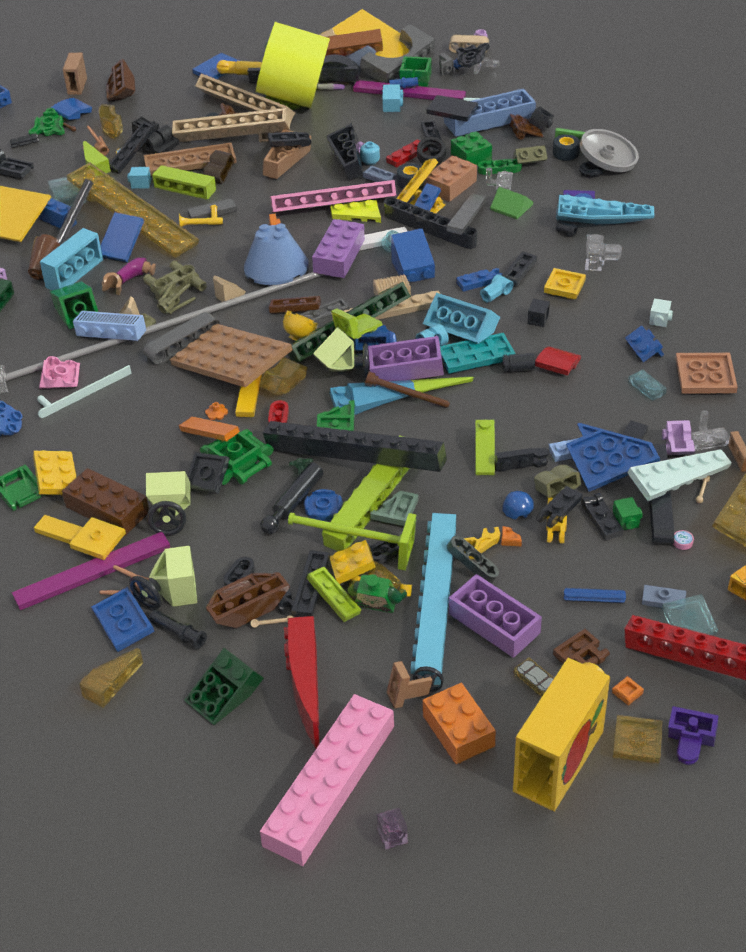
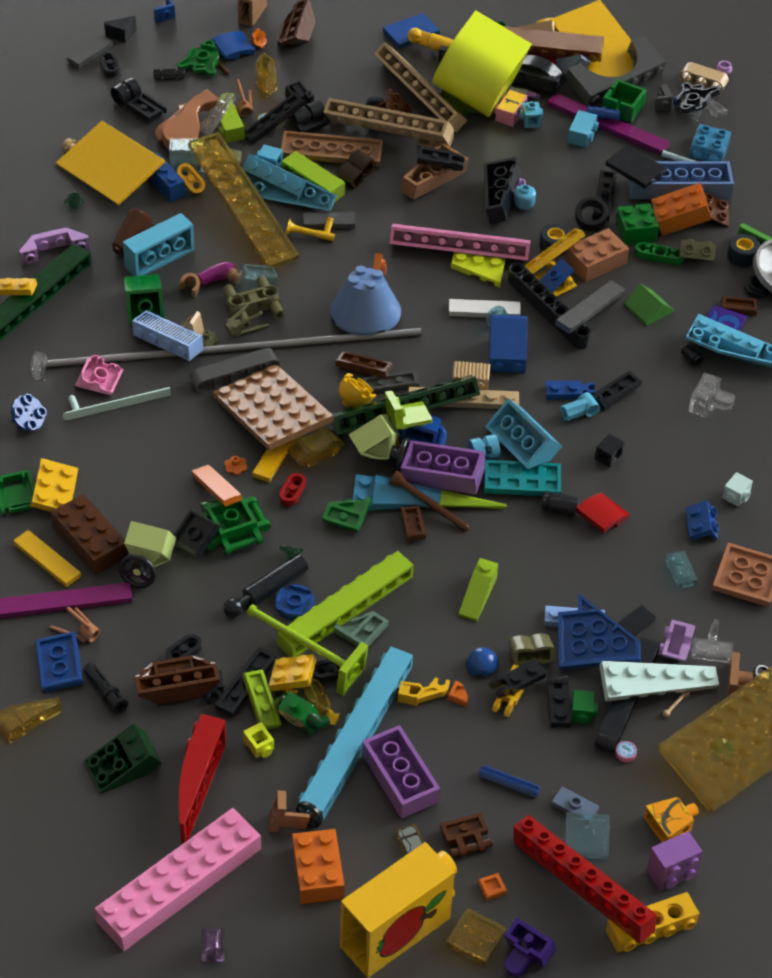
camera: 15 degrees right, 5 degrees up
(54, 165) = (185, 121): none -> nougat animal
(74, 210) = (182, 186): black axle -> none
(80, 153) = (216, 113): none -> clear plate
(86, 207) = (191, 178): none -> yellow plate
(91, 99) = (259, 38): none -> orange plant
(97, 538) = (66, 571): yellow plate -> none
(121, 237) = (219, 230): blue tile -> none
(164, 261) = (252, 272): none -> clear light blue plate
(166, 193) = (282, 186): none -> medium azure wedge
(170, 577) = (118, 635): yellowish green piece -> none
(226, 290) = (303, 326): tan slope -> none
(255, 623) = (178, 705): tan hinge -> none
(326, 97) = (508, 109): none -> brick
(338, 248) = (435, 311): medium lavender brick -> none
(345, 97) = (531, 114): none -> medium azure brick
(348, 629) = (258, 740): none -> neon yellow brick
(356, 446) = (347, 551): black brick -> none
(378, 175) = (523, 228): sand blue plate -> none
(399, 412) = (413, 523): none -> reddish brown plate
(404, 154) = (563, 207): red plate -> none
(458, 553) = (405, 715): pearl dark grey beam -> none
(498, 82) = (710, 143): none -> dark azure brick
(504, 128) = (681, 209): none -> orange brick
(504, 179) = (653, 275): clear plate -> none
(521, 459) = (509, 613): black hinge -> none
(541, 118) = (733, 205): black brick -> none
(564, 283) = (655, 423): yellow plate -> none
(584, 185) = (740, 305): none -> reddish brown tile

